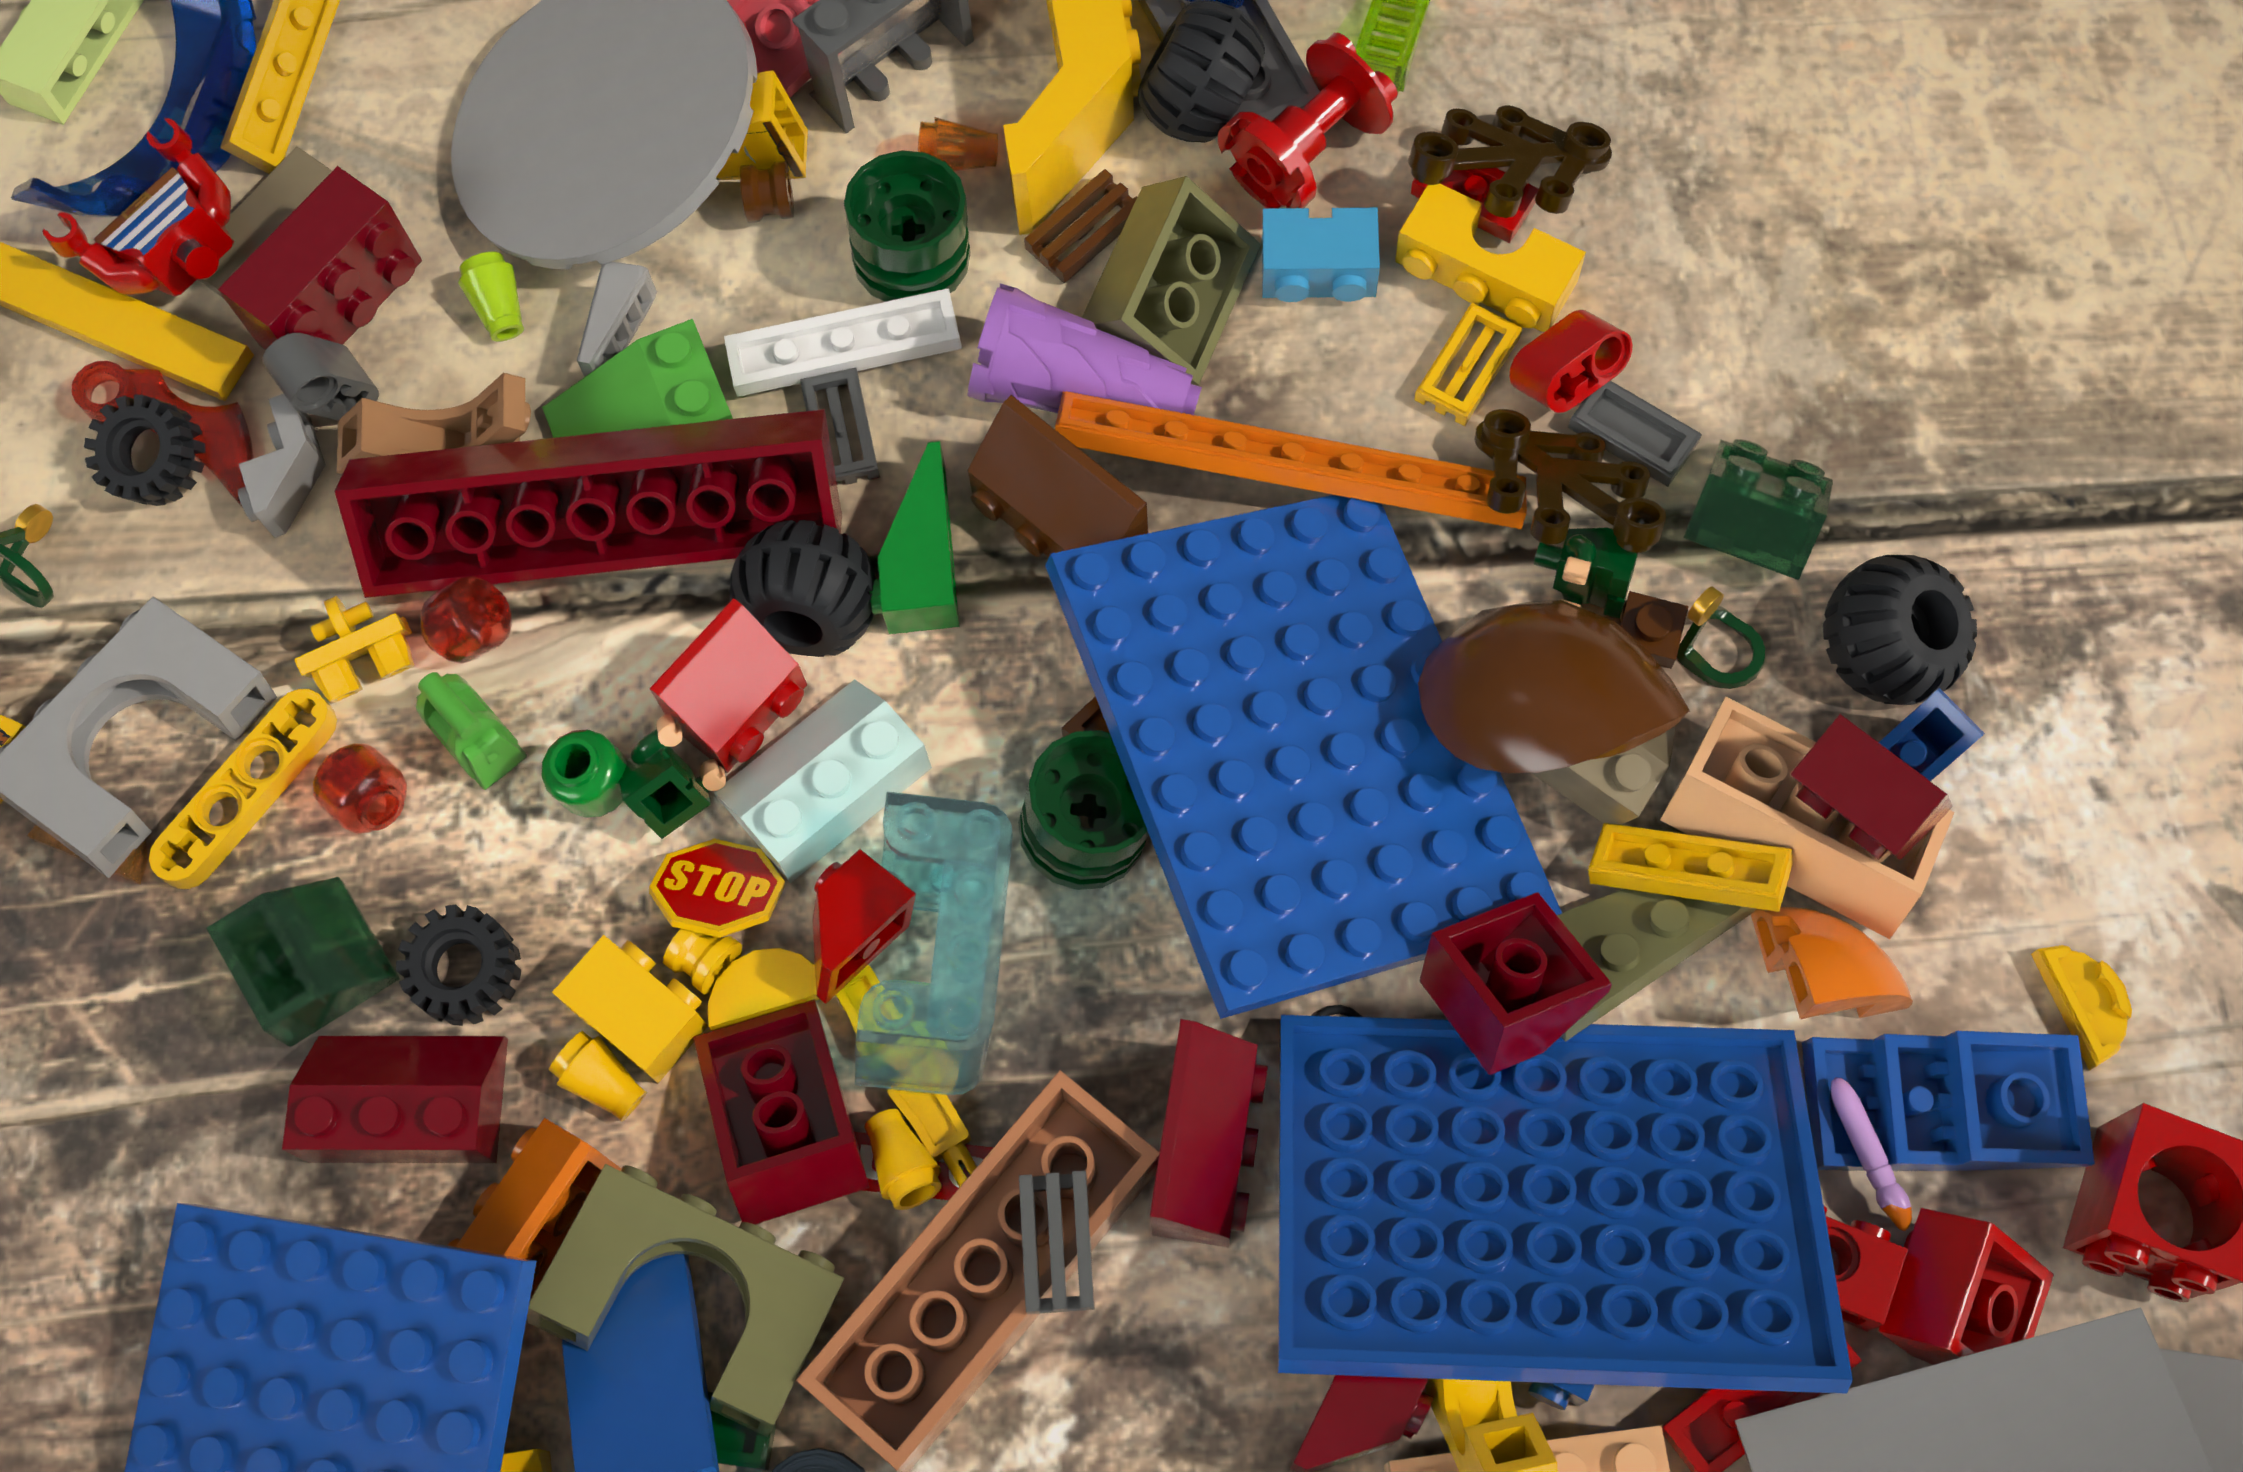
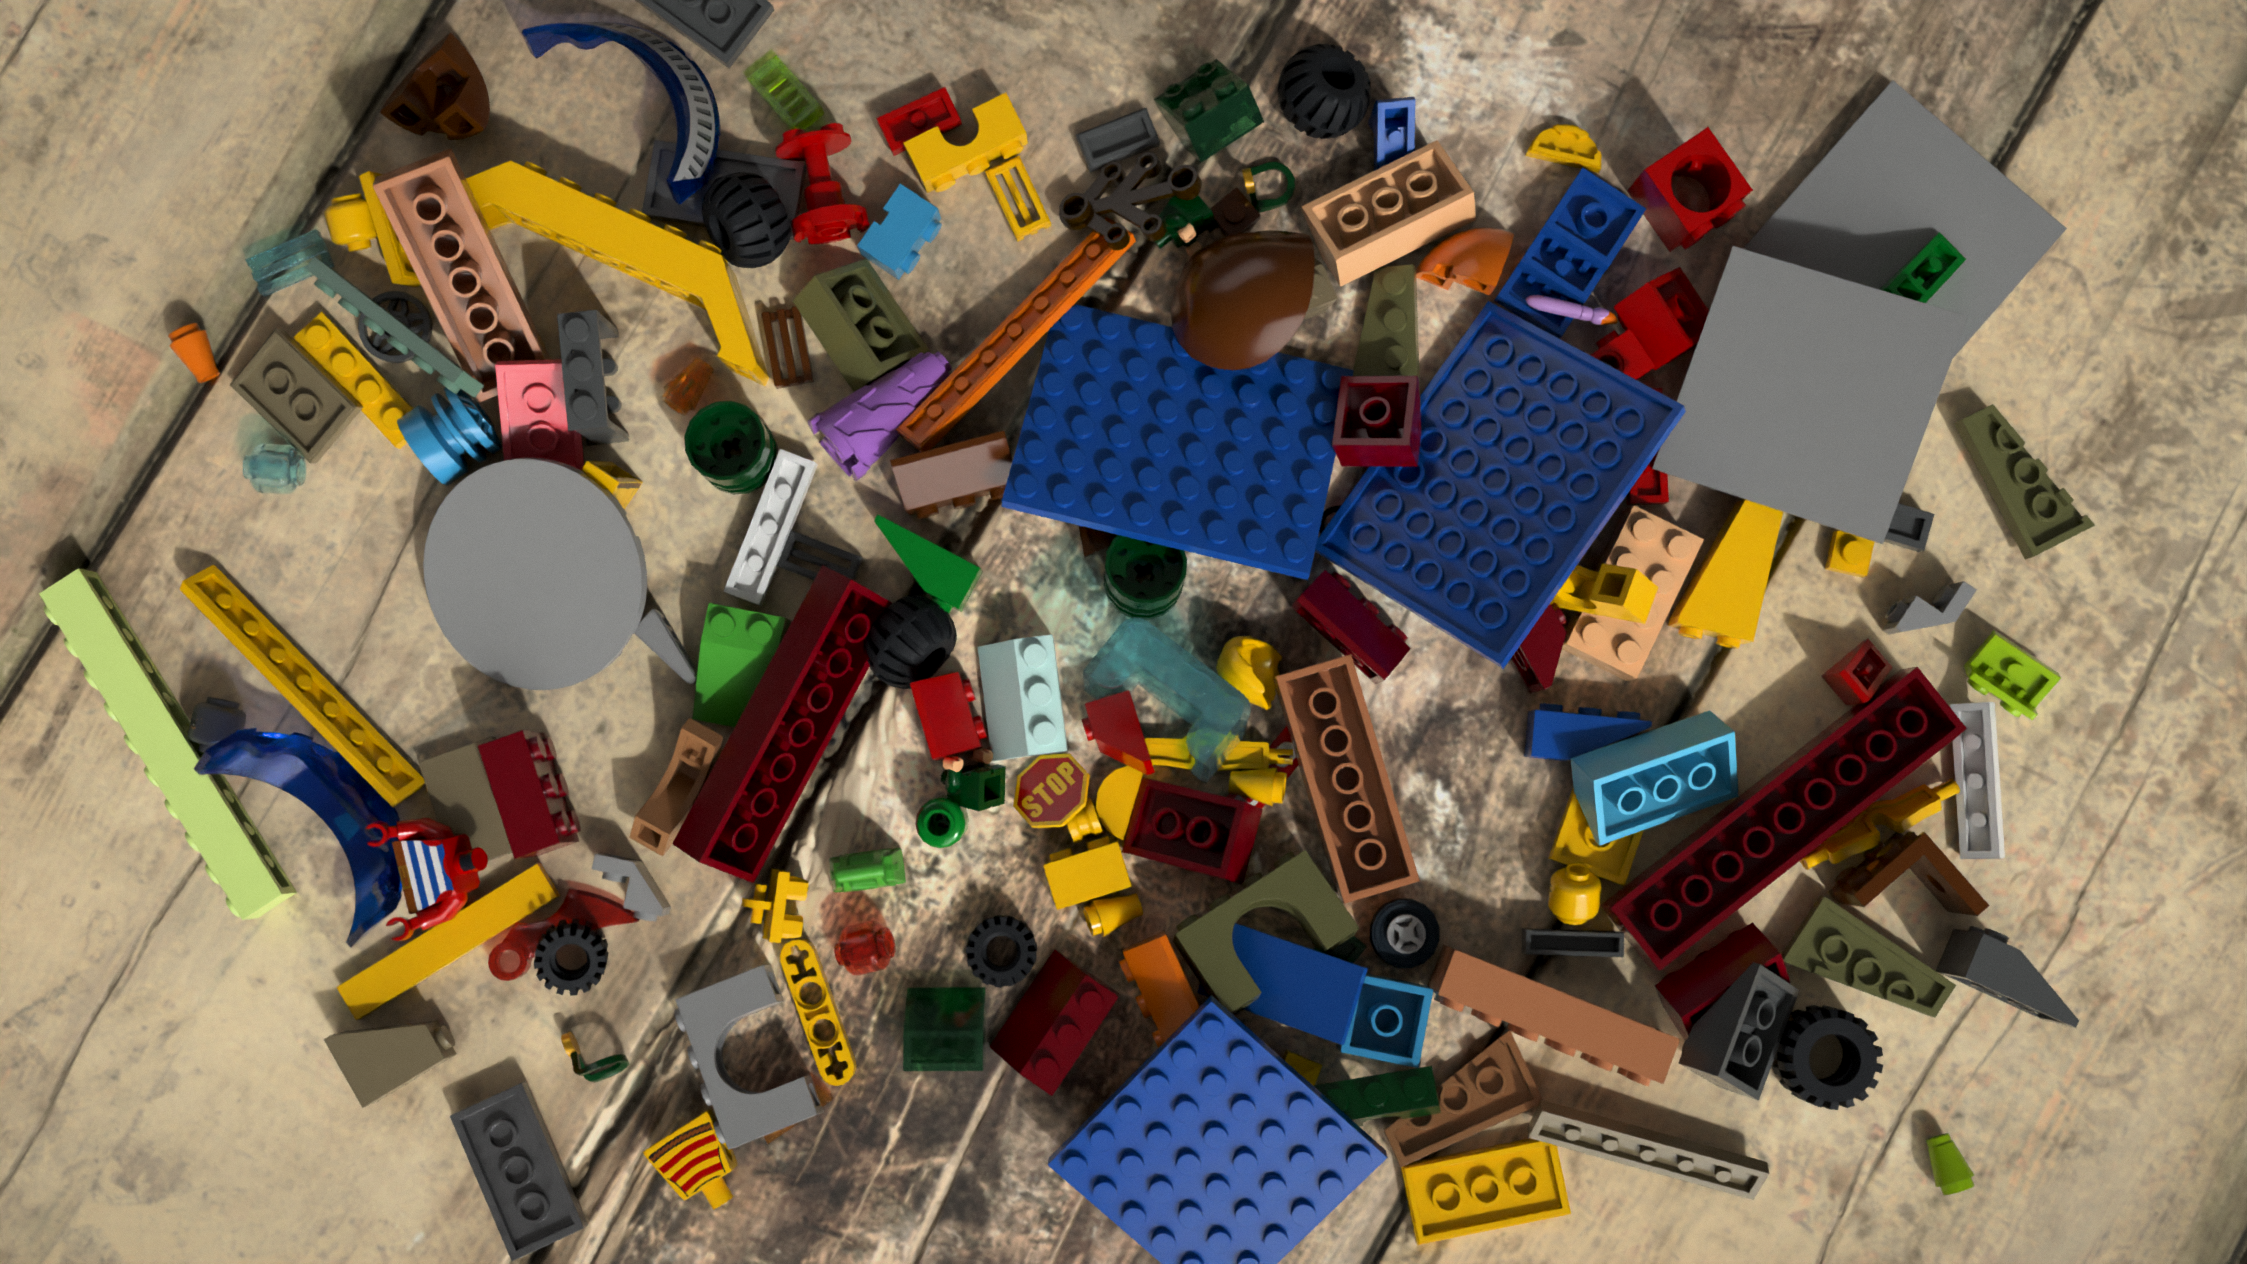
camera: 60 degrees left, 15 degrees up
(318, 375) = (595, 832): dark grey beam -> none
(465, 620) = (804, 835): clear red head -> none
(493, 294) = (600, 704): lime cone -> none
(767, 191) = (644, 510): reddish brown wheel -> none
(1049, 1031) = (1250, 668): none -> yellow hair
(1053, 1184) = (1393, 750): dark grey tile -> none
(1570, 360) = (1059, 145): red beam -> none
(1579, 150) = (933, 46): dark brown plant -> none
(1691, 866) = (1376, 290): yellow tile -> none
(1870, 789) = (1407, 176): dark red slope -> none

